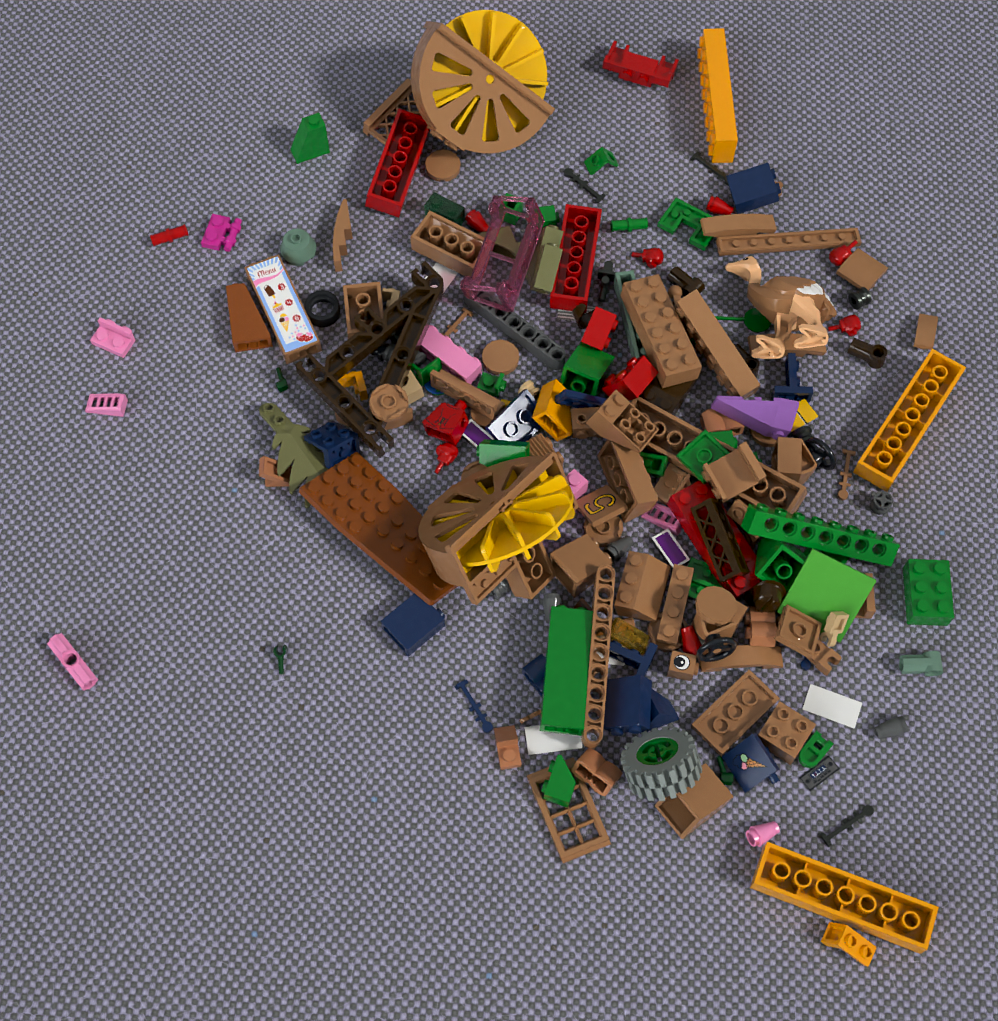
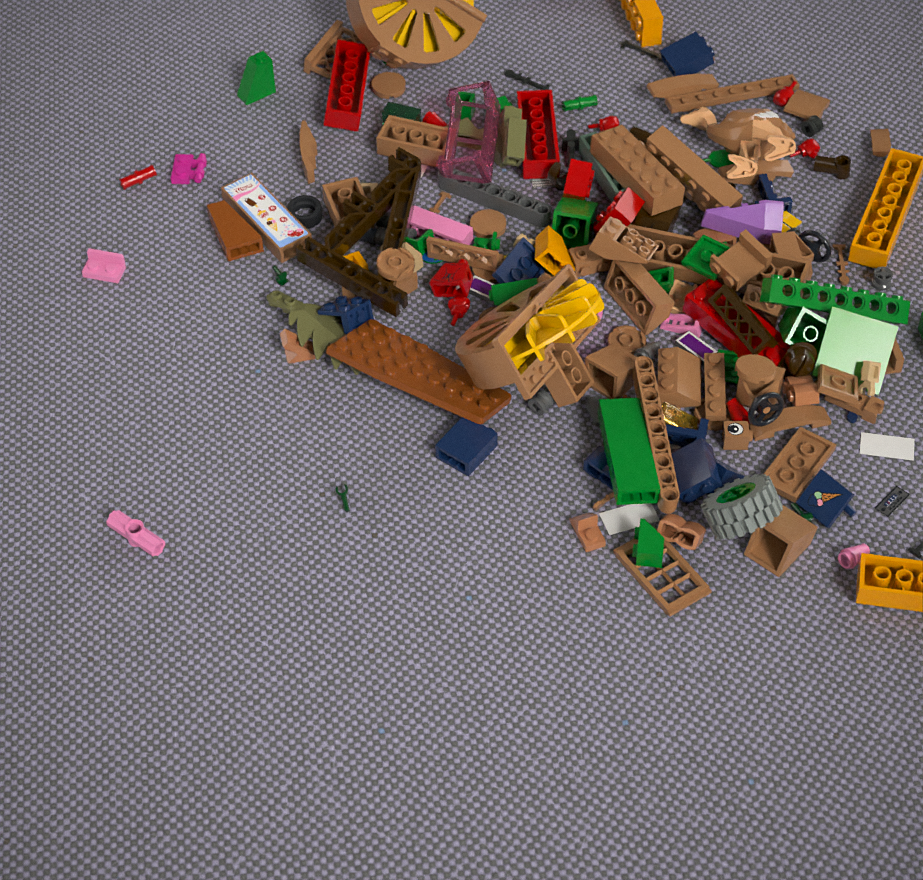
camera: 10 degrees left, 15 degrees down
(112, 410) = (118, 320): bright pink slope -> none
(297, 247) = (267, 166): sand green cone -> none
(487, 726) = (562, 518): dark blue piece -> none
(578, 399) = (573, 237): dark blue tile -> none
(599, 159) = (535, 58): green bracket -> none
(601, 505) = (620, 322): medium nougat tile -> none
(682, 212) = (627, 86): green plate -> none
(719, 206) = (657, 74): red cone -> none
(785, 732) = (852, 468): medium nougat brick -> none
(810, 755) = (881, 482): green plate -> none

